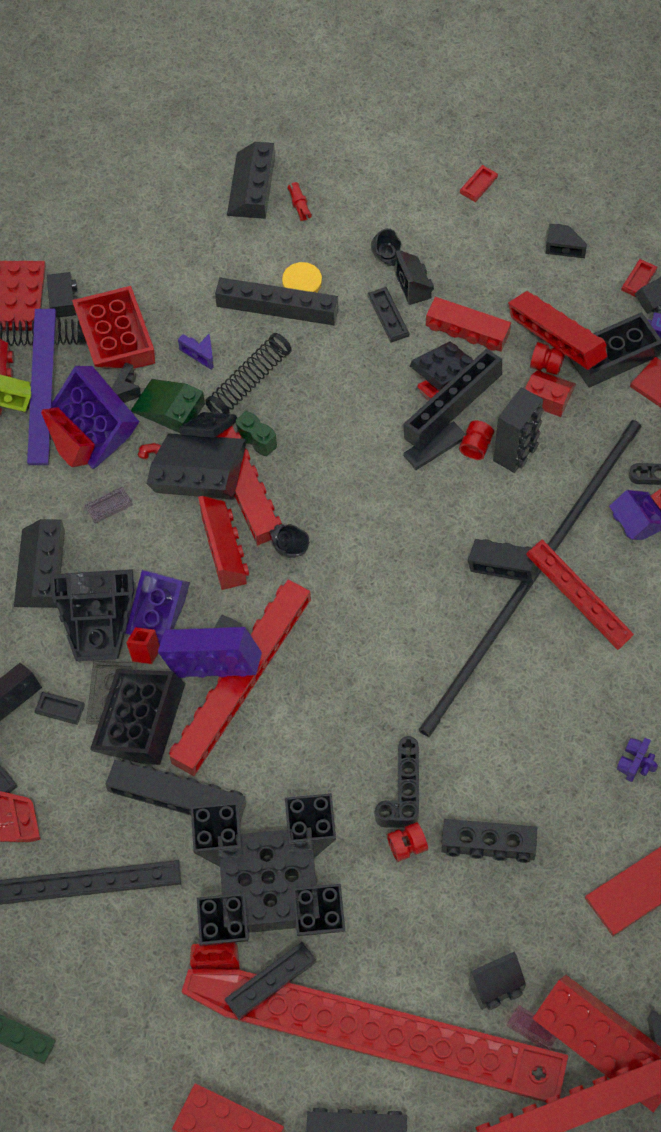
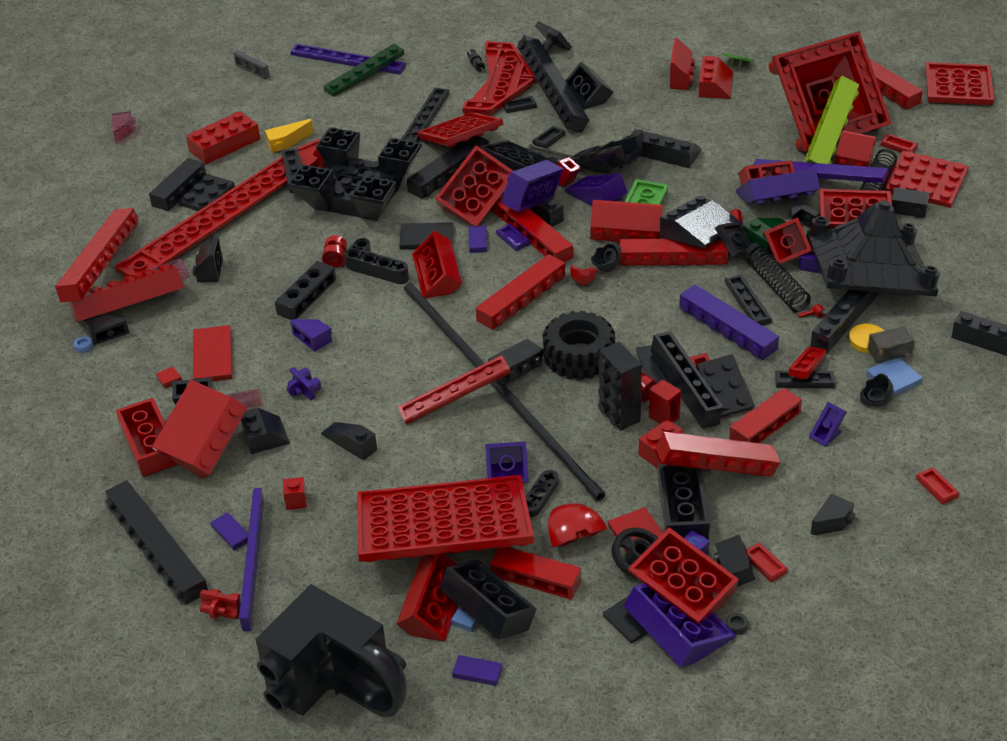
camera: 115 degrees right, 20 degrees down
(102, 806) = (460, 129): none -> red plate
(108, 505) = (697, 187): clear purple tile -> none
(155, 549) = (647, 192): none -> bright green plate
(191, 1043) = (288, 135): none -> yellow slope
(194, 370) = (788, 241): none -> red slope
(199, 292) = (871, 254): none -> black piece
(231, 723) = (474, 187): none -> red slope
(256, 433) = (716, 267): dark green brick -> none
(281, 329) = (817, 309): none -> red hand
(281, 663) = (513, 237): none -> dark purple tile
(290, 395) = (748, 299): none -> black tile
(299, 201) = (959, 357): red pin -> none
(301, 700) = (477, 239): none -> dark purple tile
(317, 250) = (891, 344): none -> clear smoke brick
(320, 759) = (414, 234): none -> black tile
(322, 556) = (583, 275): none -> red piece
(339, 398) = (729, 322): none -> dark purple brick
(347, 246) = (899, 373): none -> medium blue tile
(352, 1085) = (205, 192): none -> black plate
(373, 310) = (807, 362): none -> red plate
(380, 715) = (436, 266): none -> red slope
(382, 607) = (520, 292): none -> red brick
(412, 277) = (832, 387): black slope -> none
(449, 486) = (575, 329): none -> black tyre
(451, 273) = (828, 423): none -> dark purple slope
(498, 399) = (664, 402): none -> red brick
(555, 791) = (311, 332): none -> dark purple slope

